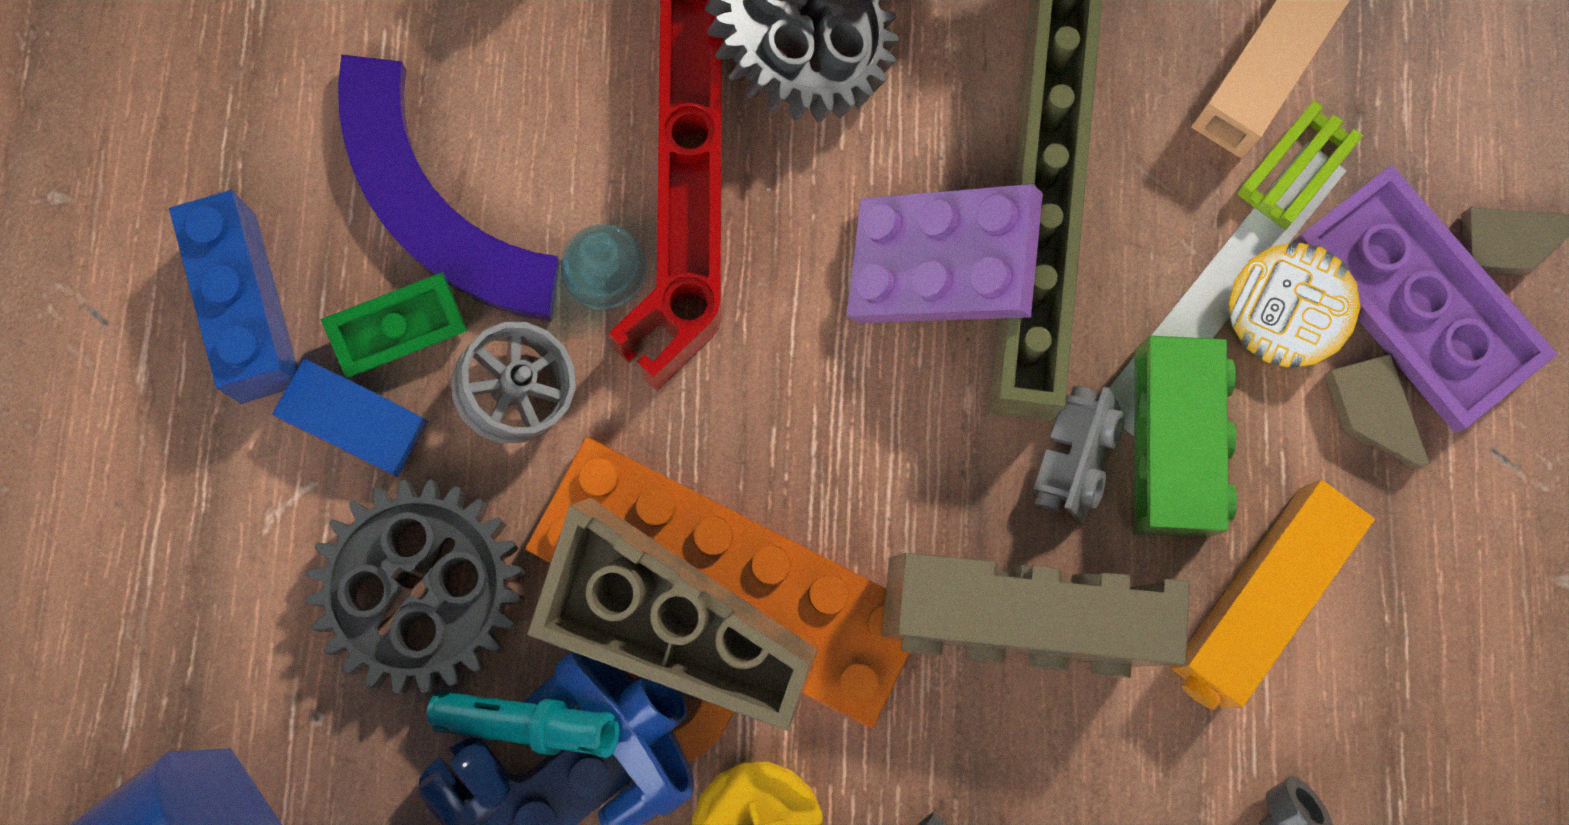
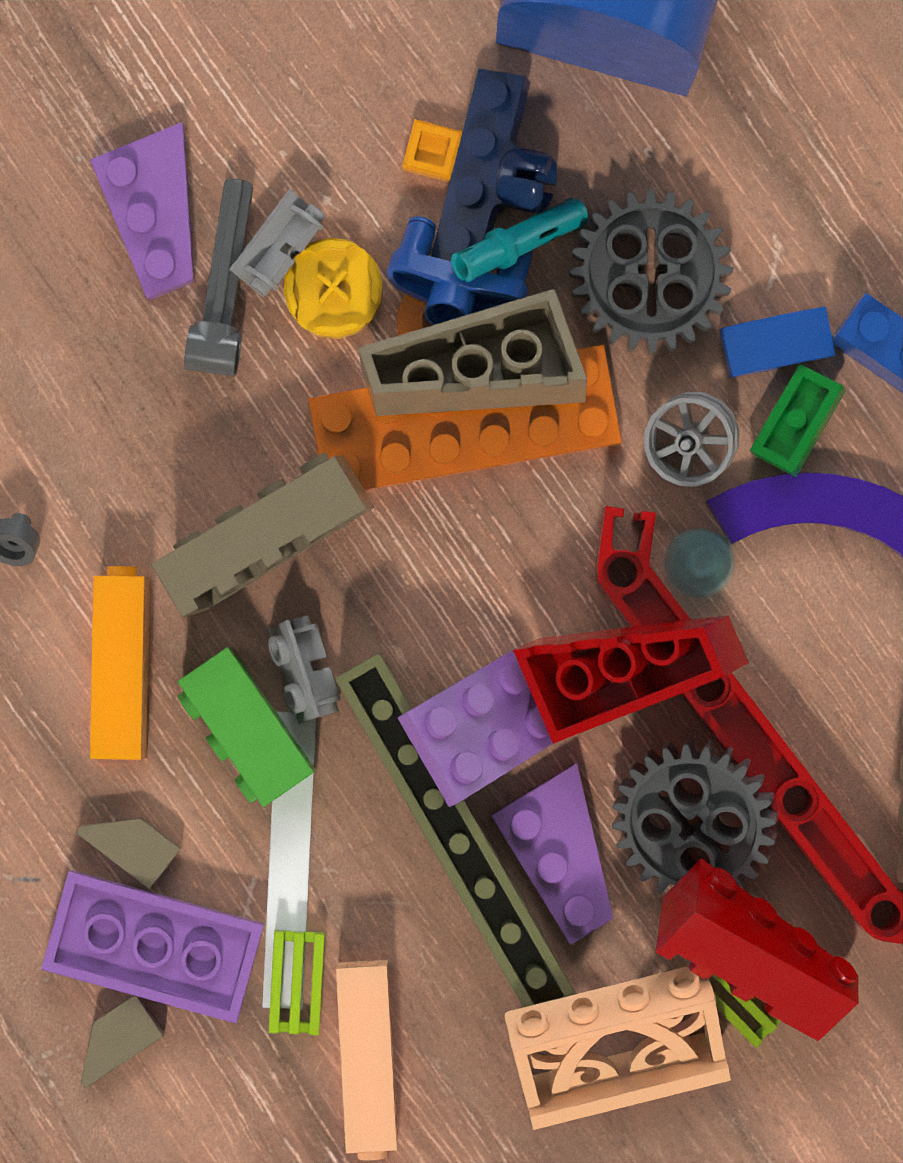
camera: 150 degrees right, 10 degrees up
(760, 193) = (614, 672): none -> red wedge
(954, 102) = (558, 851): none -> medium lavender wing
(1294, 305) = (235, 872): tile -> none

